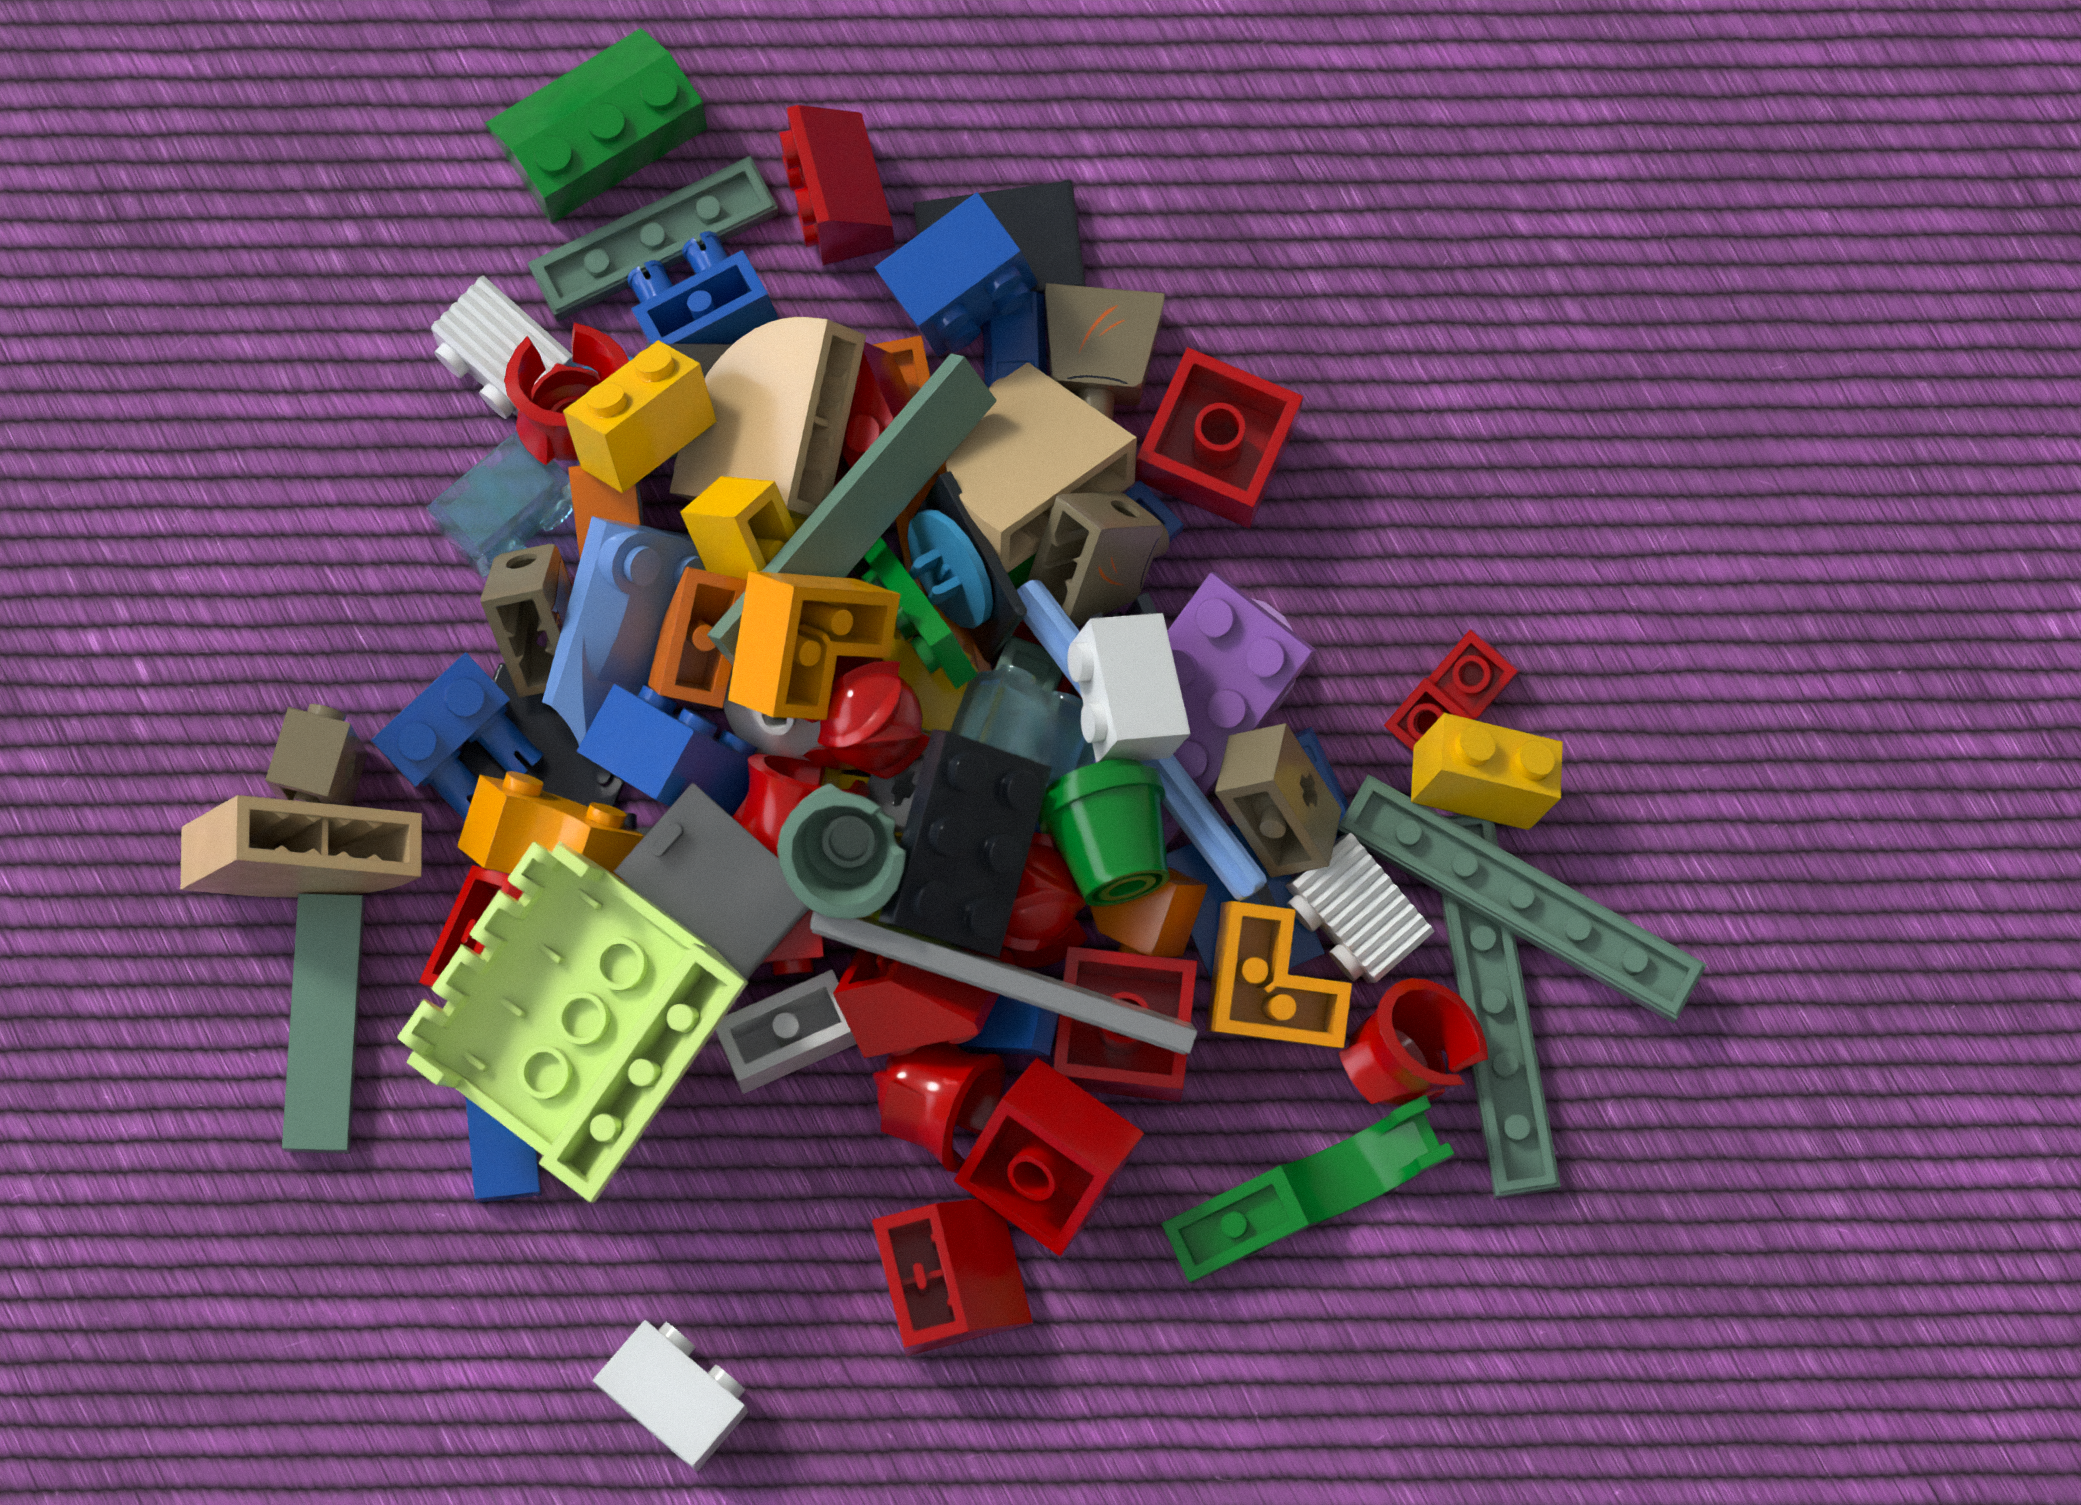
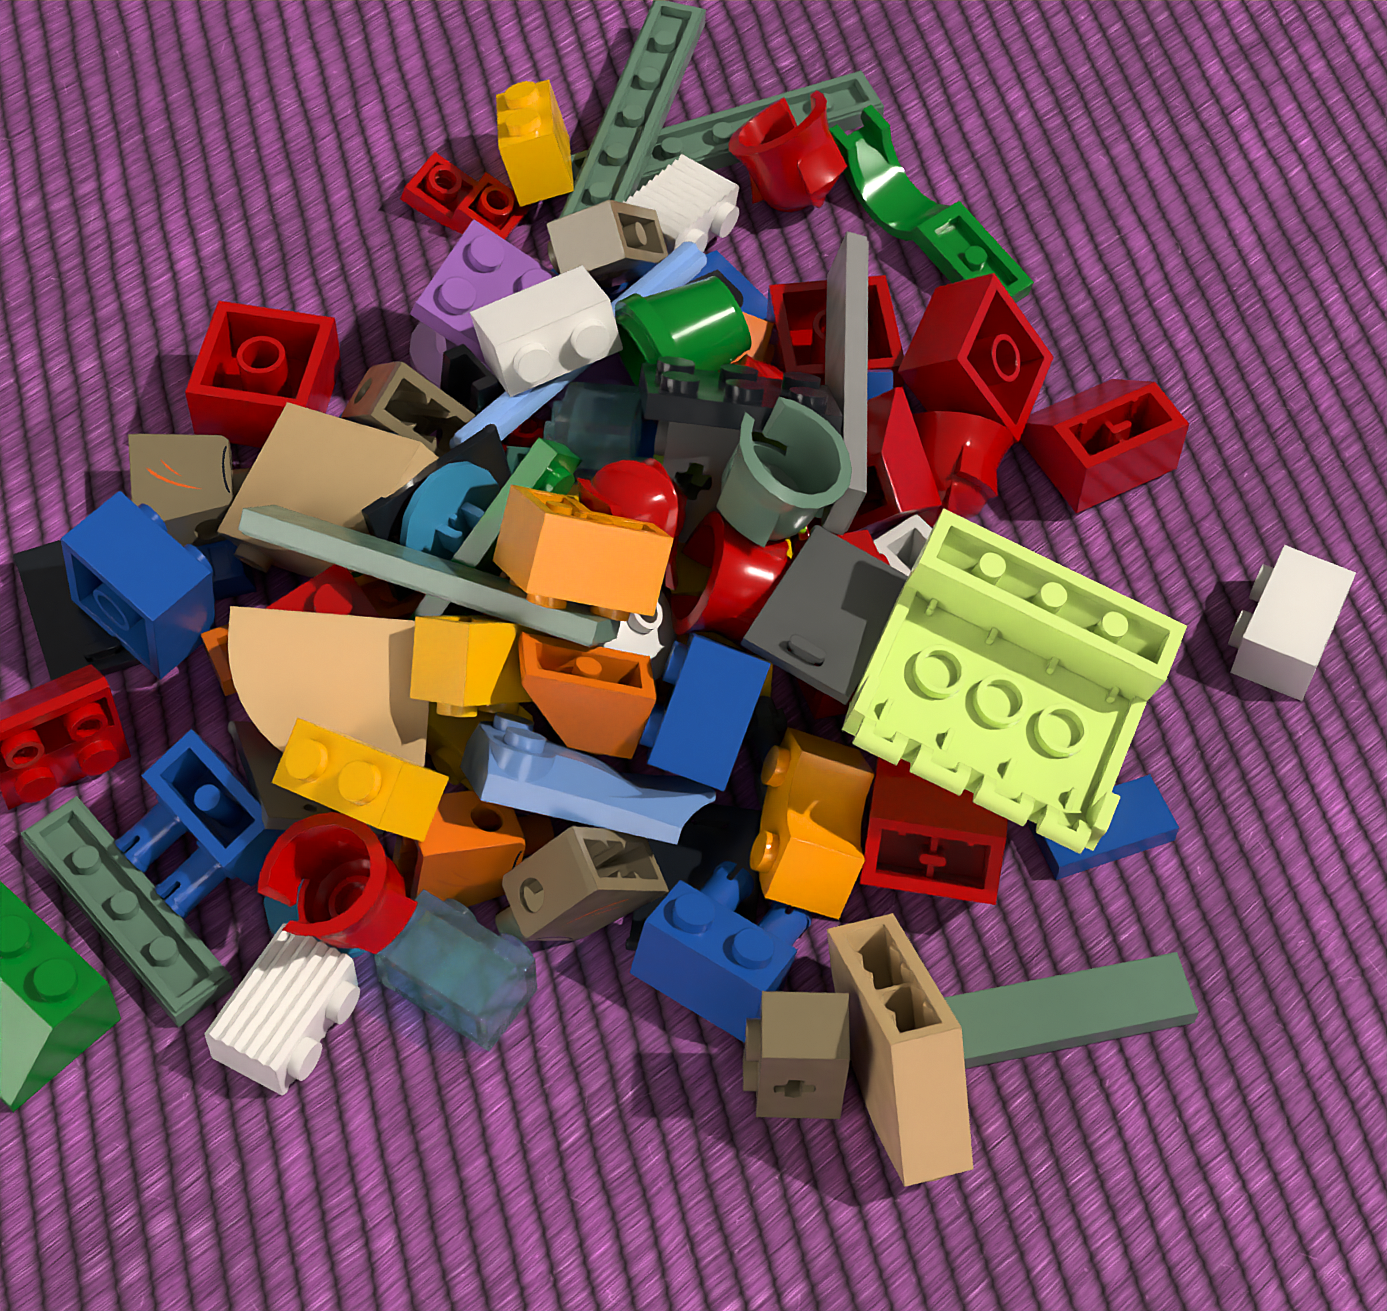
camera: 105 degrees left, 20 degrees down
(1252, 984) = (768, 246): light orange brick -> none

